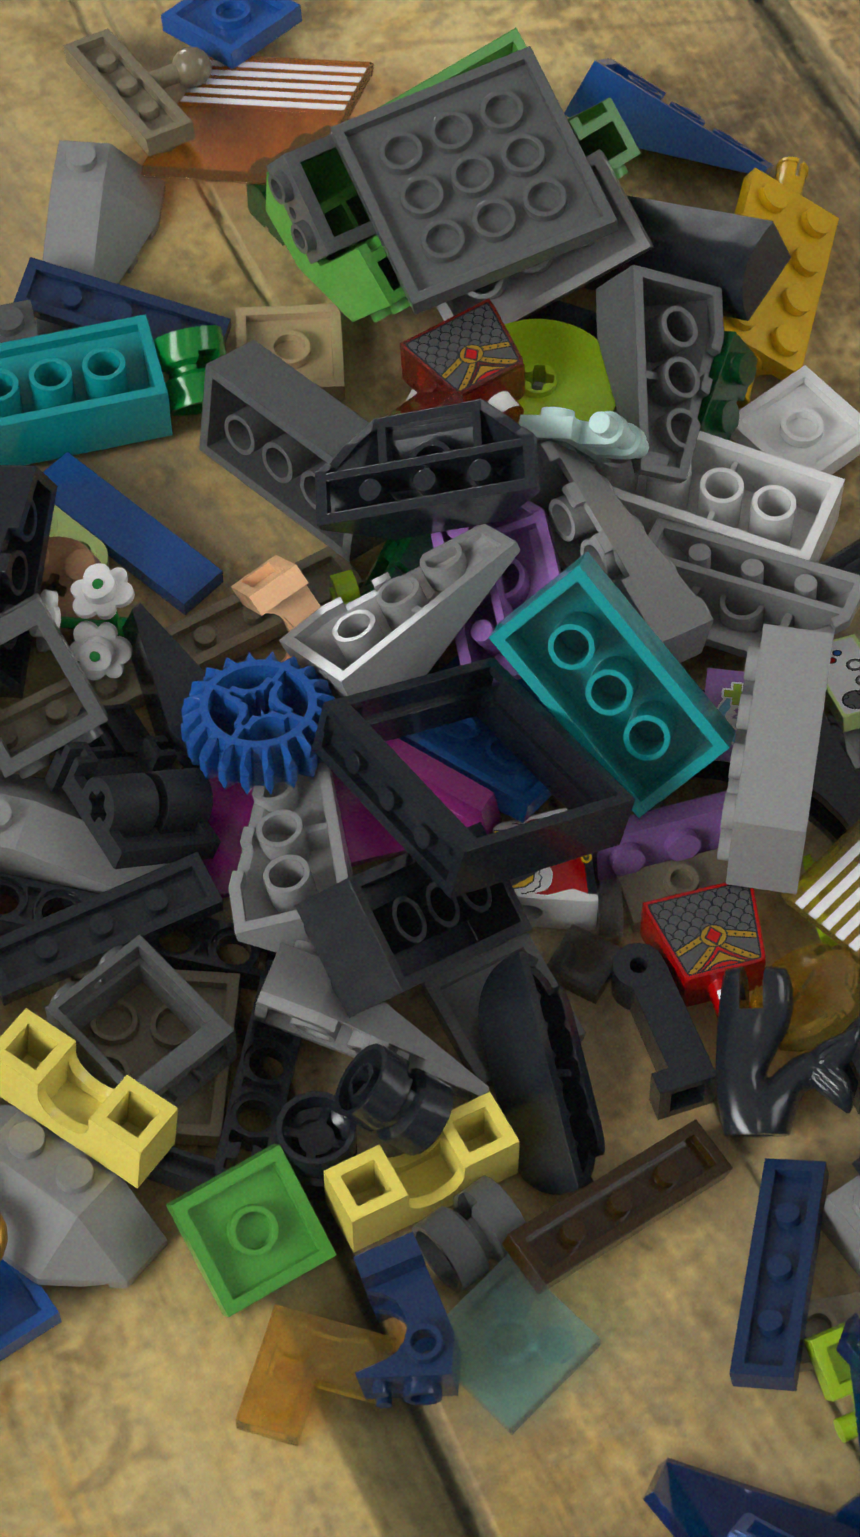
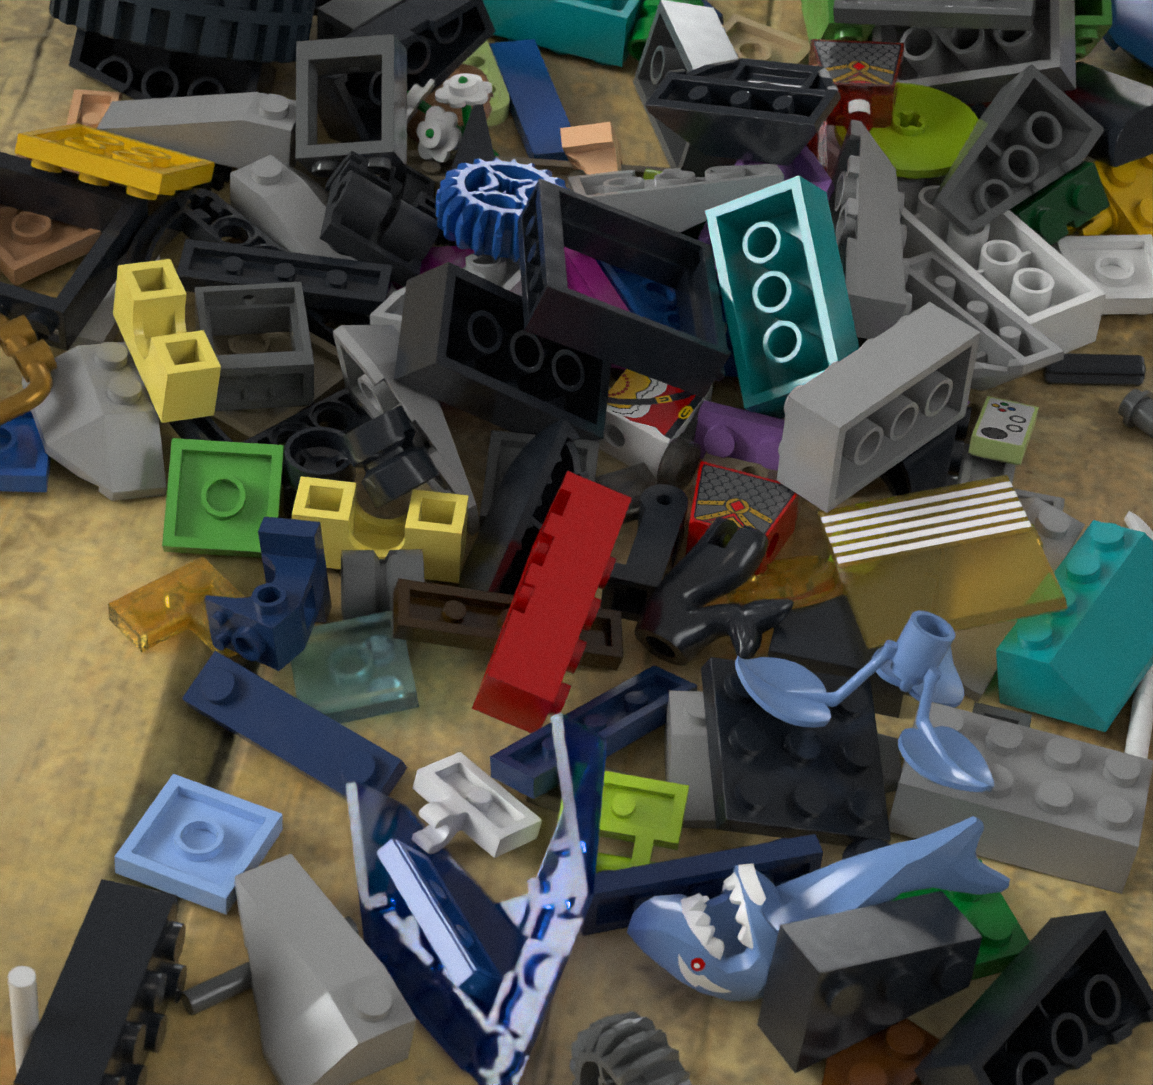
camera: 30 degrees right, 15 degrees down
(521, 1453) = (290, 729): none -> dark blue plate
(599, 439) = (903, 141): light aqua plate -> none
(668, 1176) = (553, 605): none -> red wedge
(740, 1427) = (473, 802): none -> white plate

